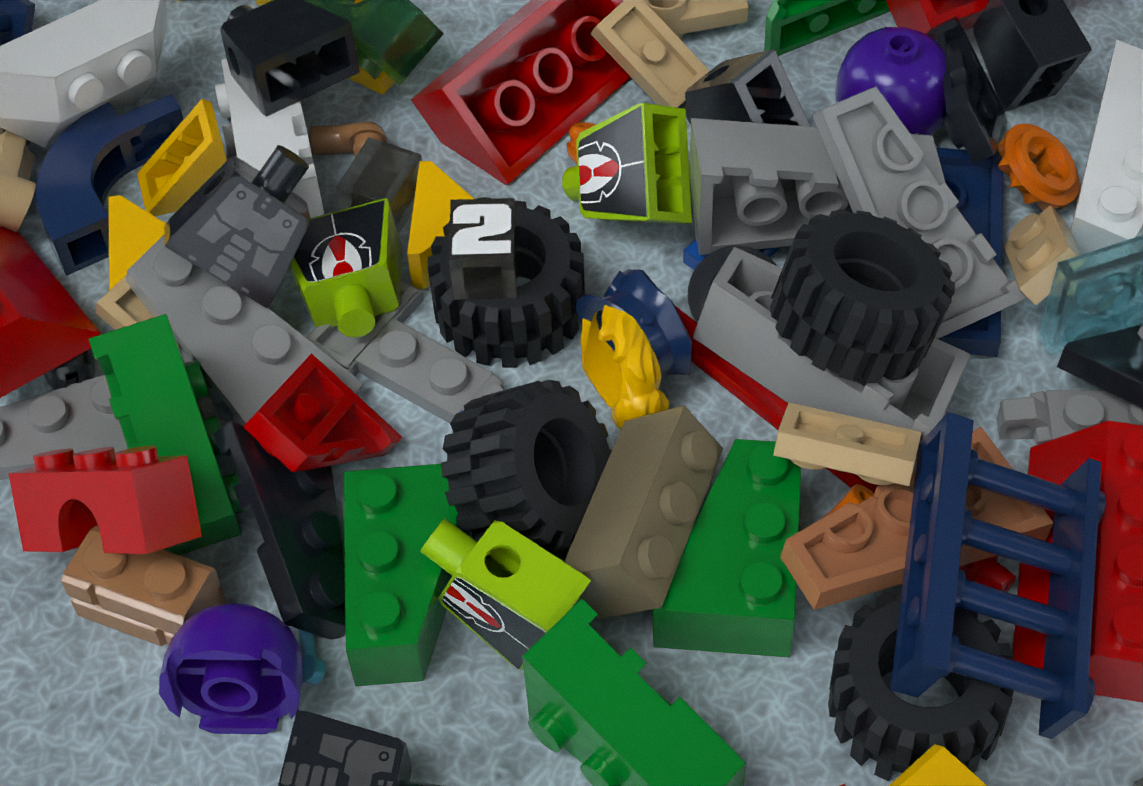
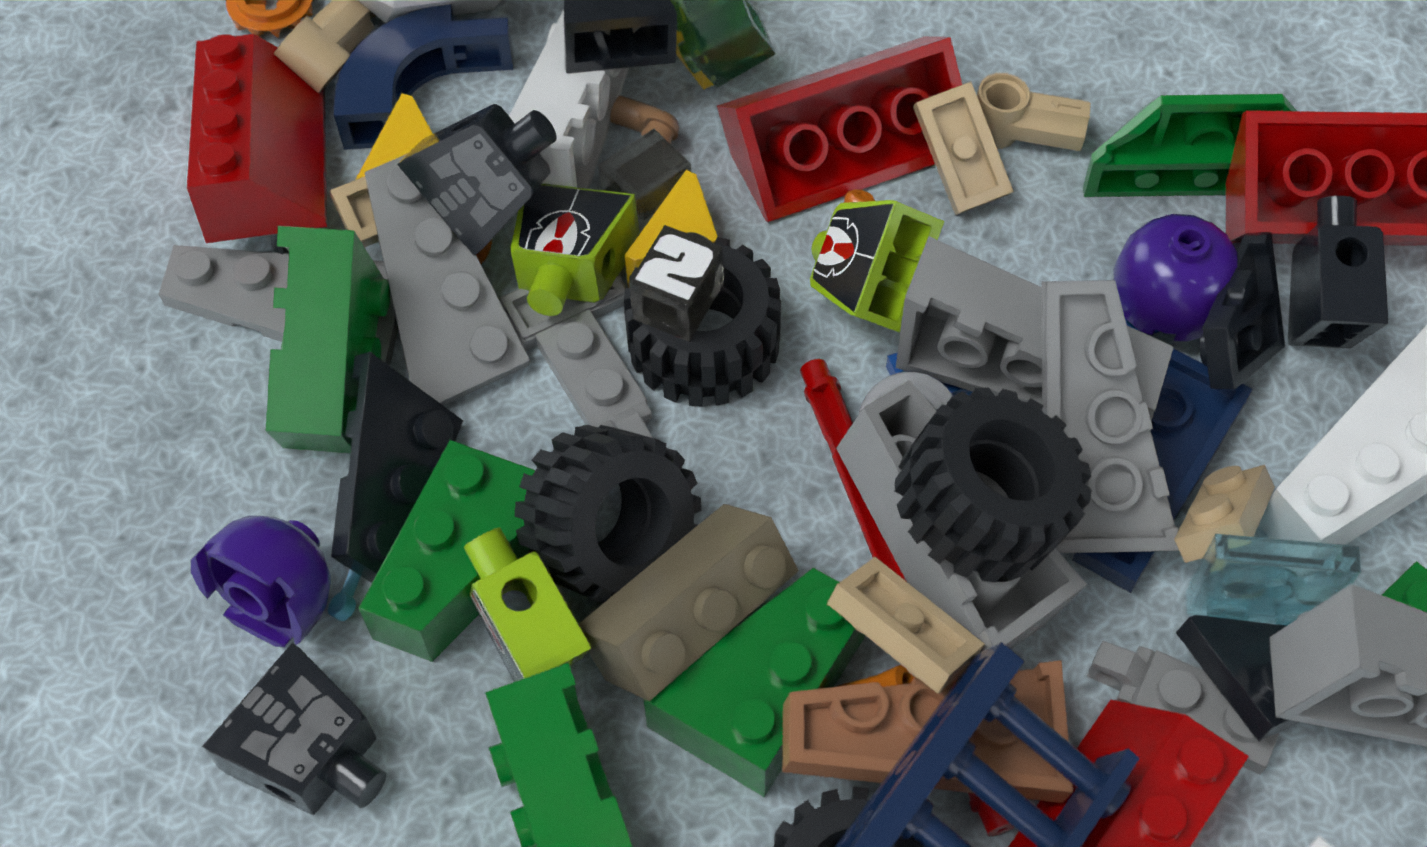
camera: 25 degrees right, 5 degrees up
(131, 495) = (236, 377): red arch -> none
(139, 592) = (235, 464): medium nougat brick -> none
(182, 162) = (490, 81): yellow slope -> none
(319, 422) = (457, 382): red wing -> none
(632, 343) = (775, 435): piece -> none
(746, 90) = (1017, 233): black torso -> none
(1053, 174) = (1300, 420): orange gear -> none

